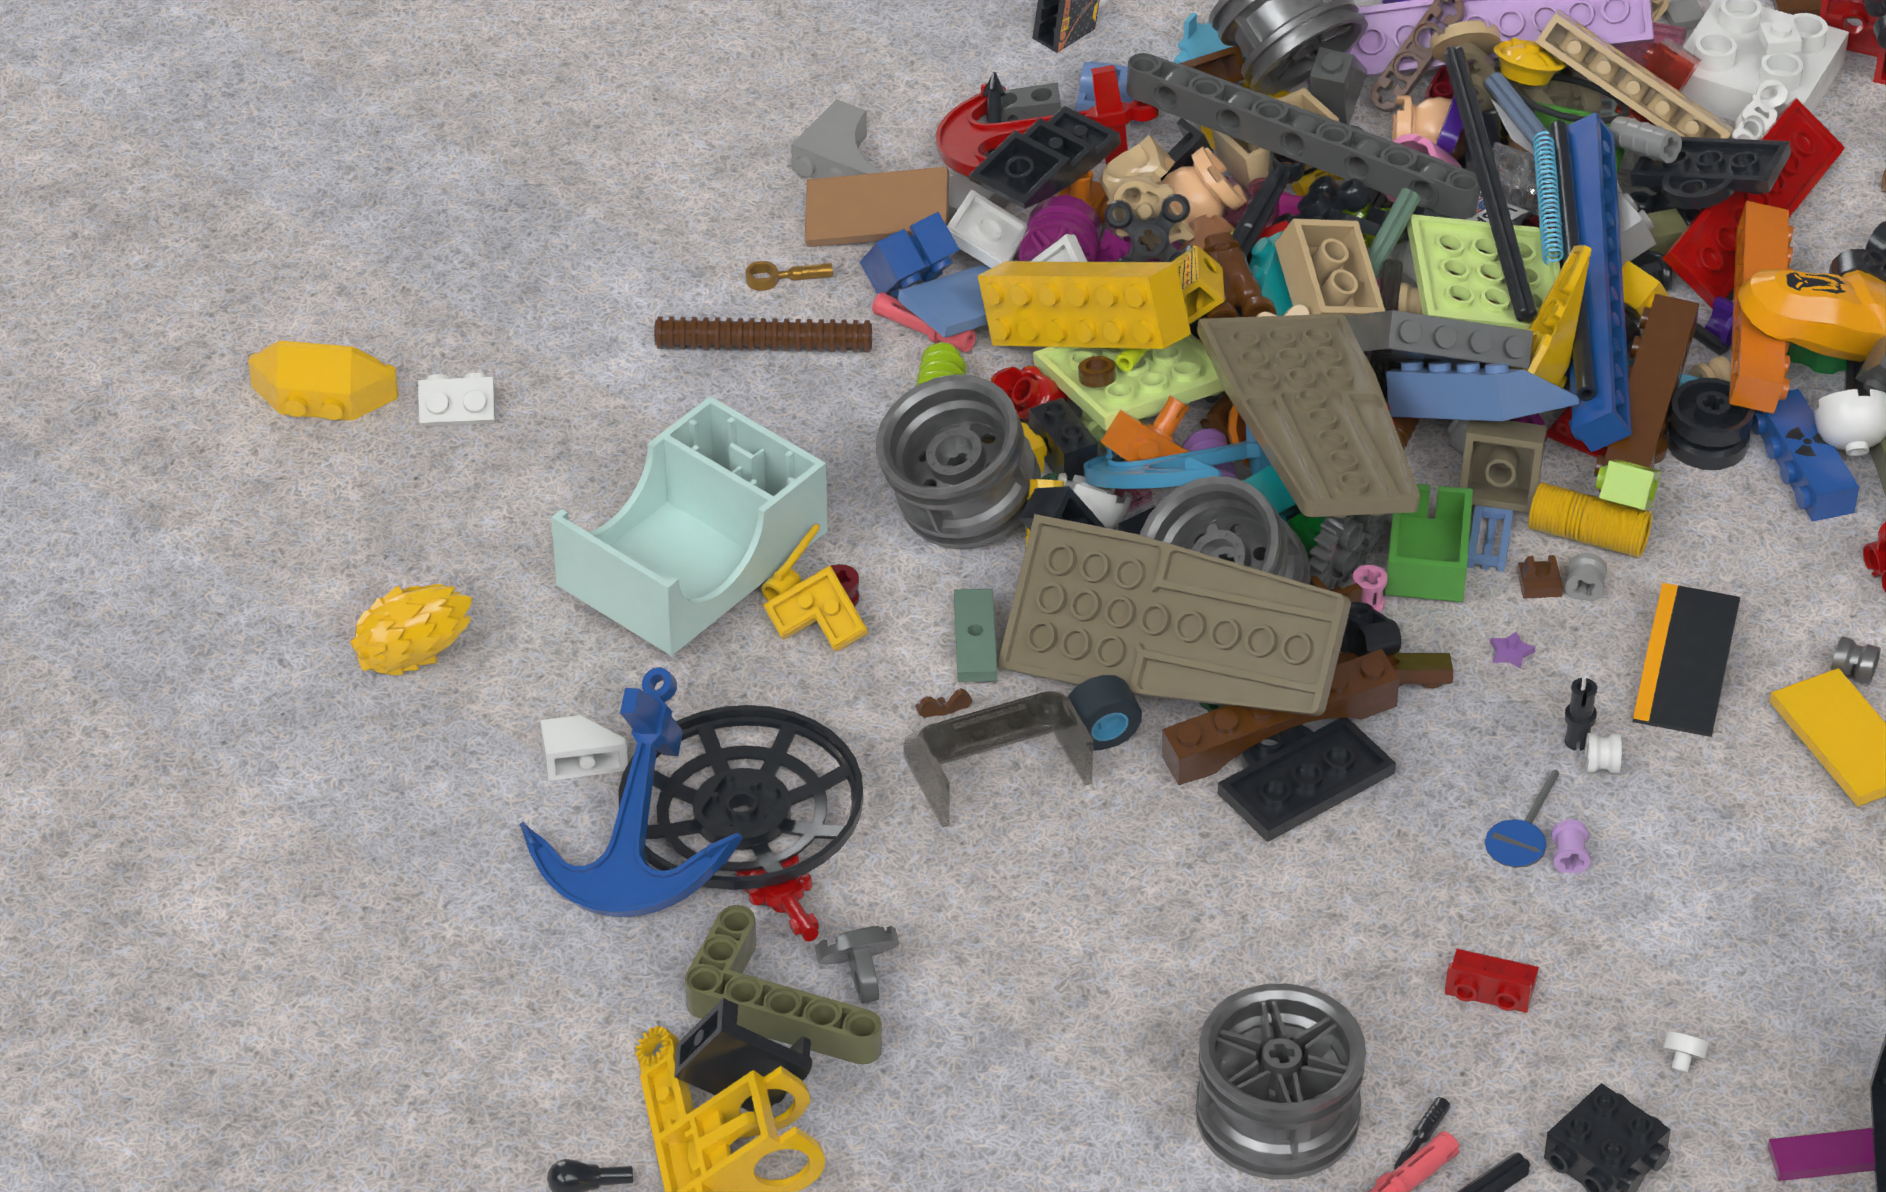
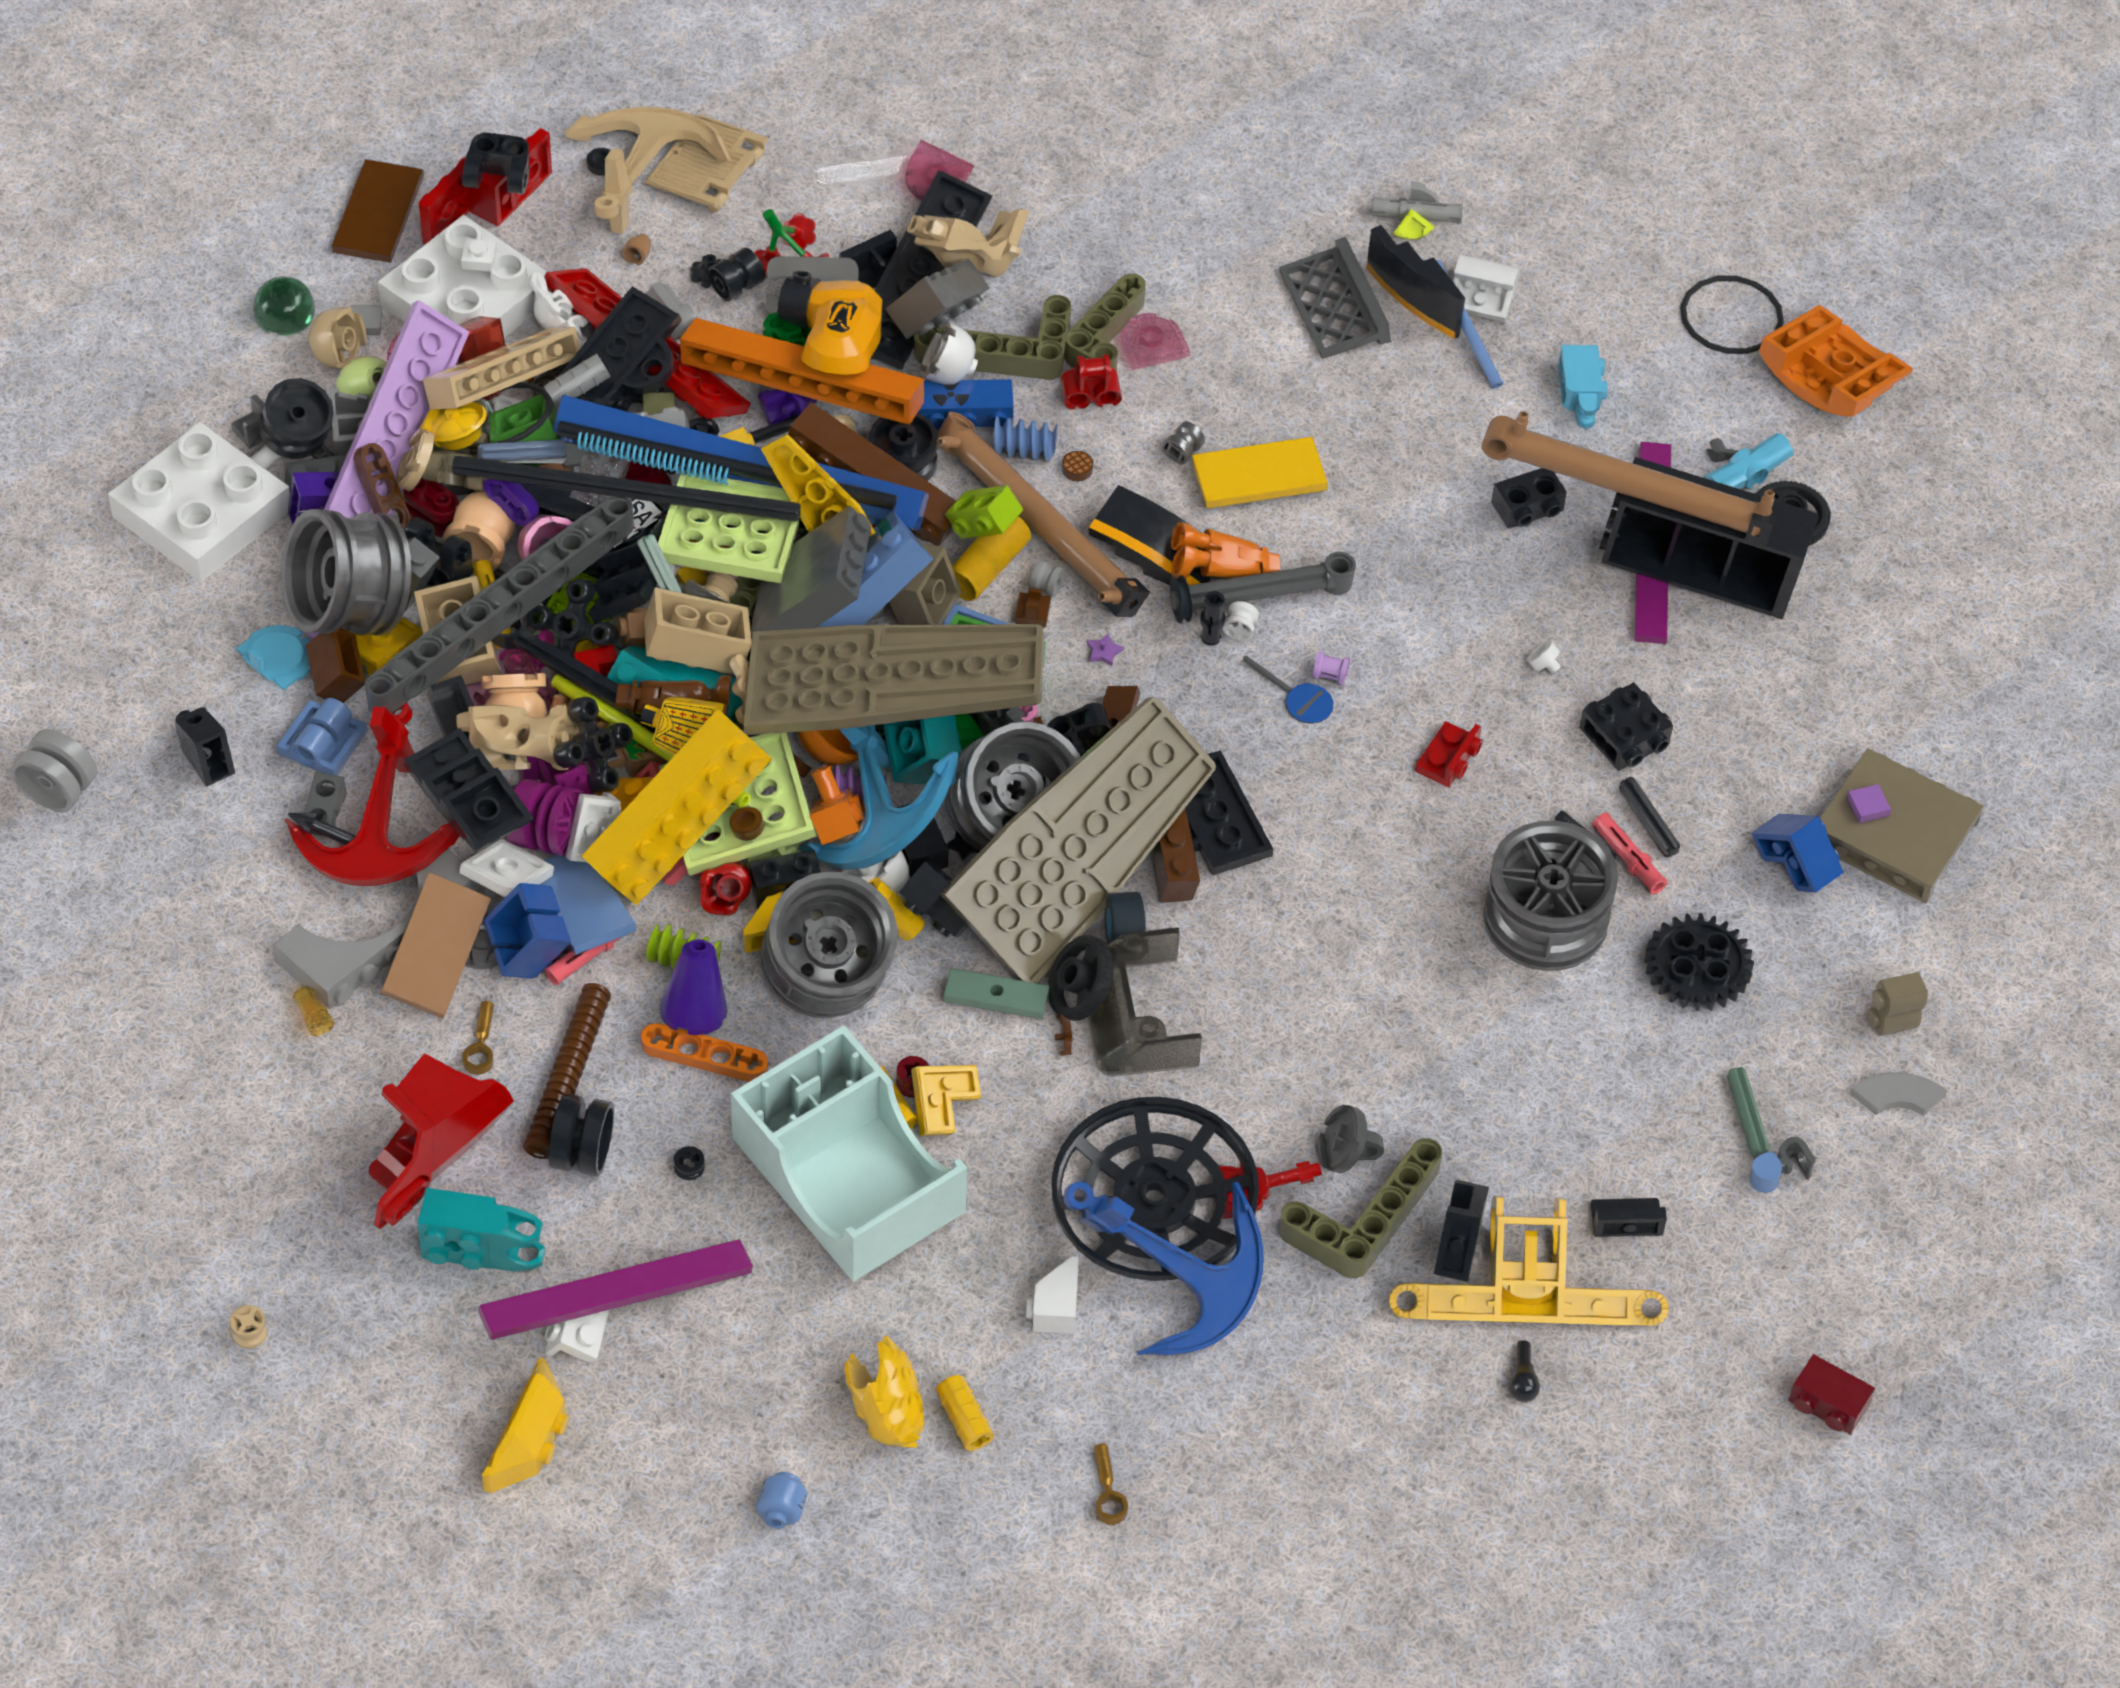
camera: 80 degrees left, 10 degrees up
(276, 581) = (781, 1500): none -> medium blue head
(361, 834) = (1106, 1479): none -> pearl gold piece
(396, 186) = (246, 1318): none -> tan wheel
(414, 700) = (964, 1412): none -> yellow axle
(492, 406) = (614, 1289): none -> magenta tile
(532, 294) = (476, 1232): none -> teal brick
(617, 222) = (441, 1120): none -> red piece
(670, 344) = (581, 1134): none -> black wheel
(774, 155) = (315, 1015): none -> clear yellow pin
(827, 430) = (707, 1047): none -> orange beam
(876, 385) = (695, 991): none -> dark purple cone
(1005, 683) = (1081, 977): none -> black wheel
(1376, 103) = (454, 553): none -> black piece
(1593, 635) = (1119, 593): none -> medium nougat piece
(1689, 717) = (1219, 554): none -> orange piece
(1717, 821) = (1333, 576): none -> dark grey piece
(1776, 581) = (1077, 466): none -> reddish brown tile
(1783, 521) = (1025, 439): none -> medium blue piece
(1815, 222) = (664, 295): none -> light grey piece

